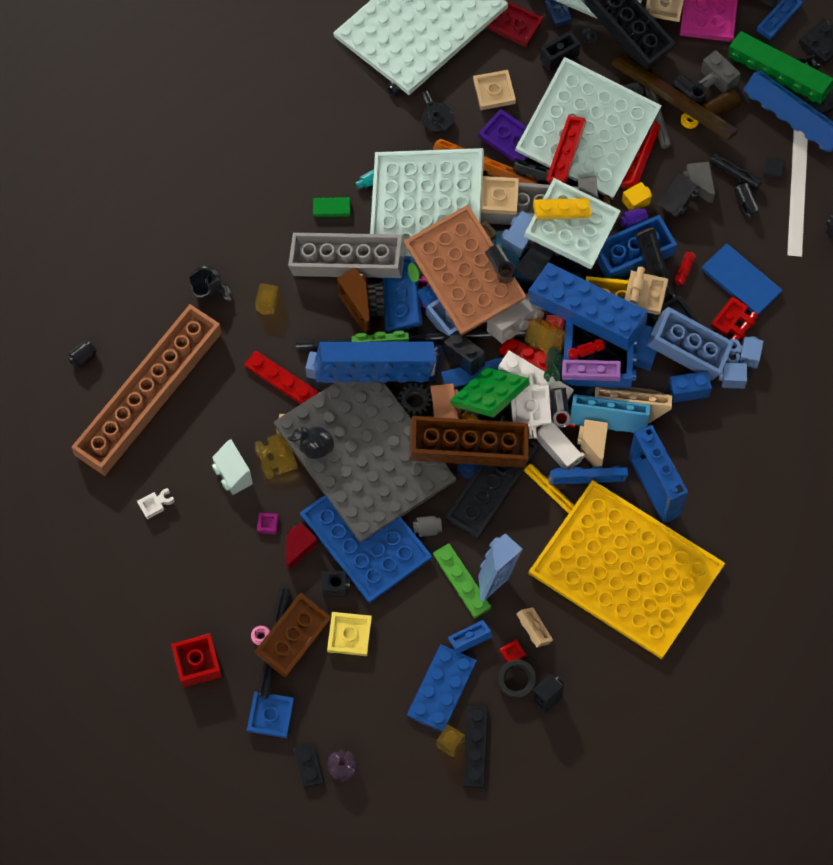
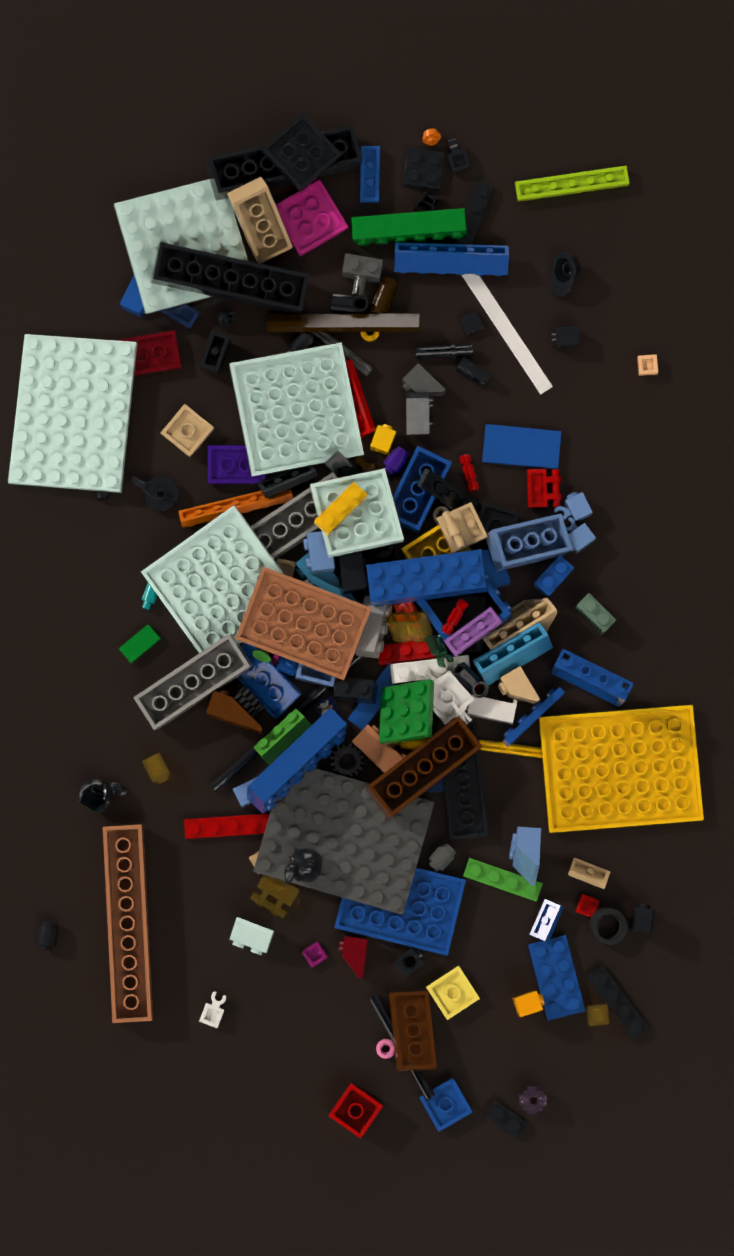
camera: 40 degrees left, 15 degrees up
(401, 685) = (528, 1003): none -> light orange brick
(499, 195) = (277, 532): tan plate -> none
(500, 262) = (329, 598): black piece -> none
(566, 149) = (298, 447): red plate -> none
(700, 438) = (595, 613): none -> sand green brick

